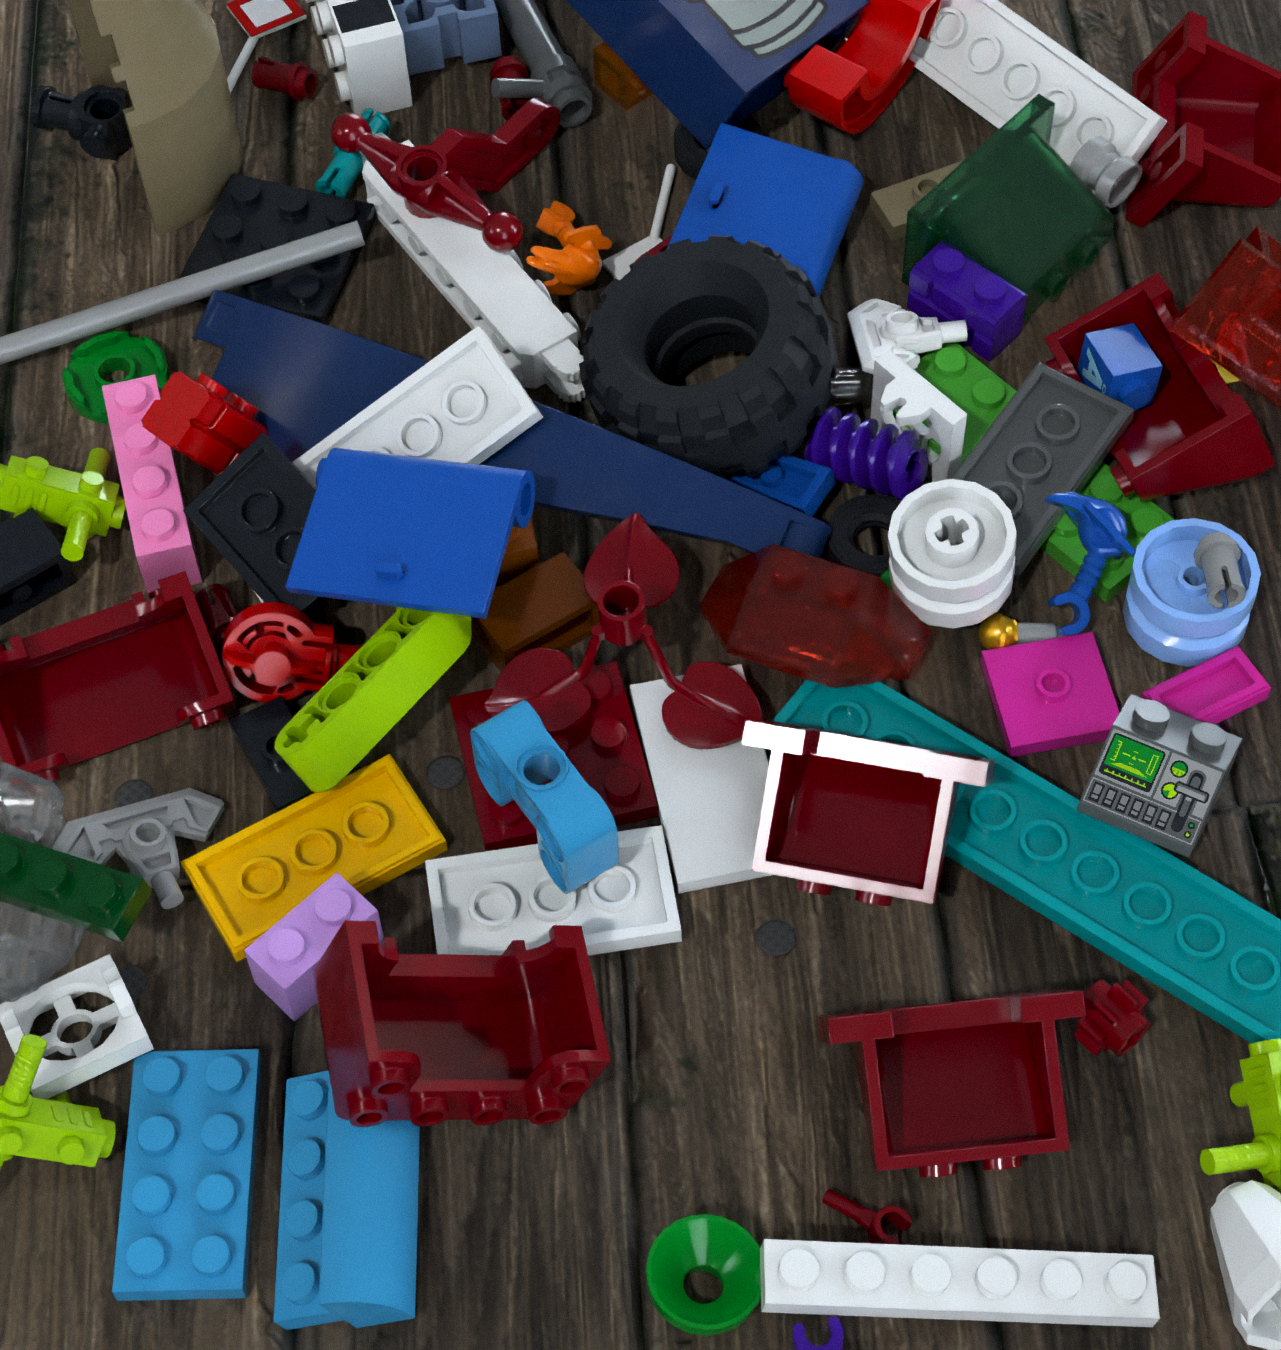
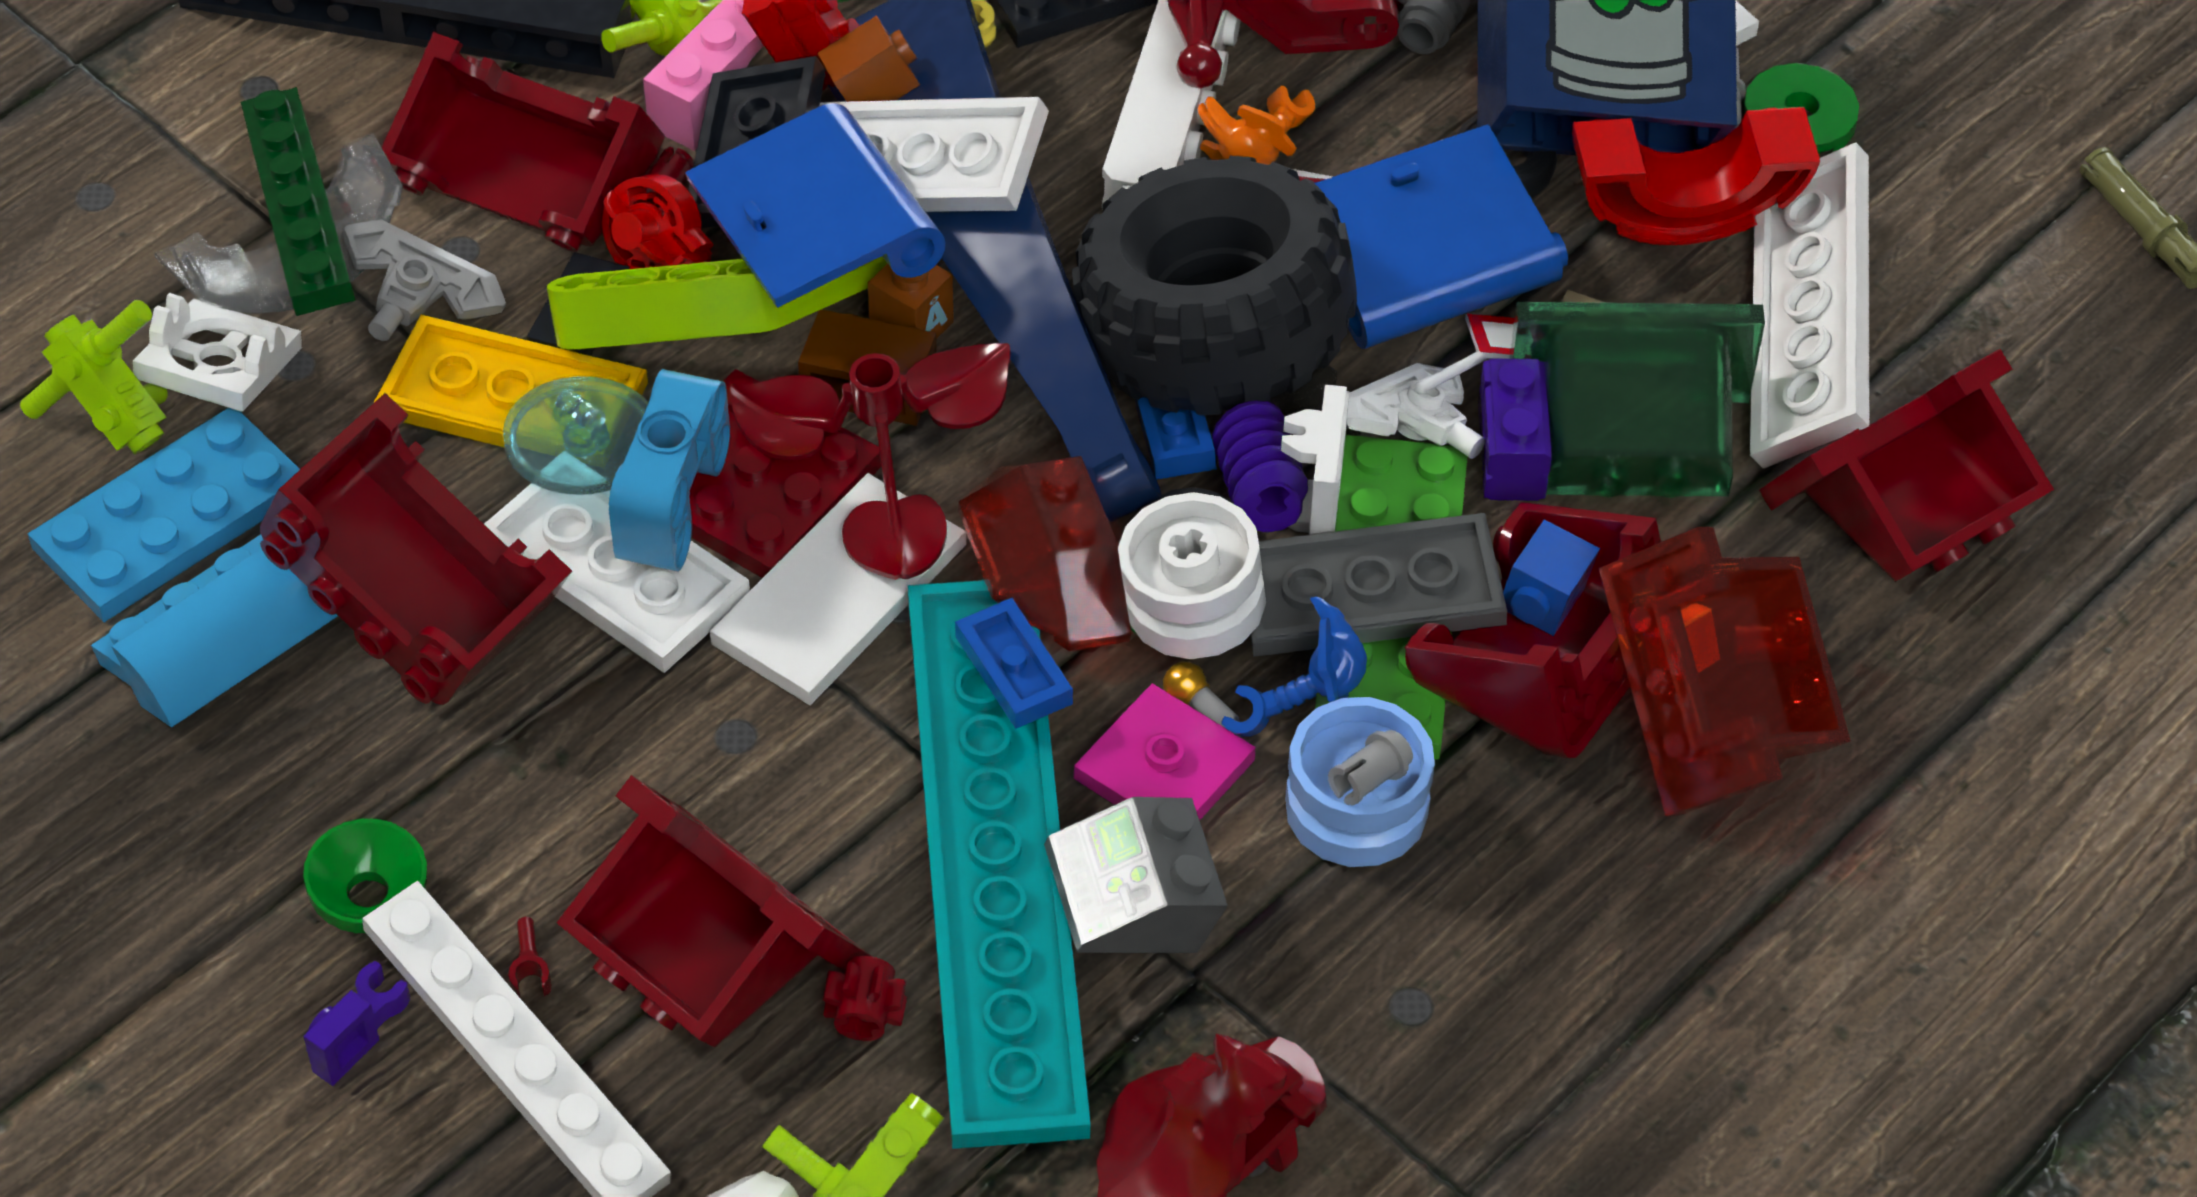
camera: 45 degrees right, 5 degrees down
(289, 951) = (450, 431): lavender brick -> none
(293, 410) = (871, 63): none -> dark orange brick
(422, 836) = (573, 433): none -> clear light blue shield
(857, 811) = (876, 678): dark red windscreen -> none
(878, 253) = (1491, 340): none -> white piece
(909, 713) = (1014, 663): none -> blue plate
(1106, 171) = (1765, 414): light grey wheel -> none
(1213, 688) = (1282, 873): dark pink tile -> none

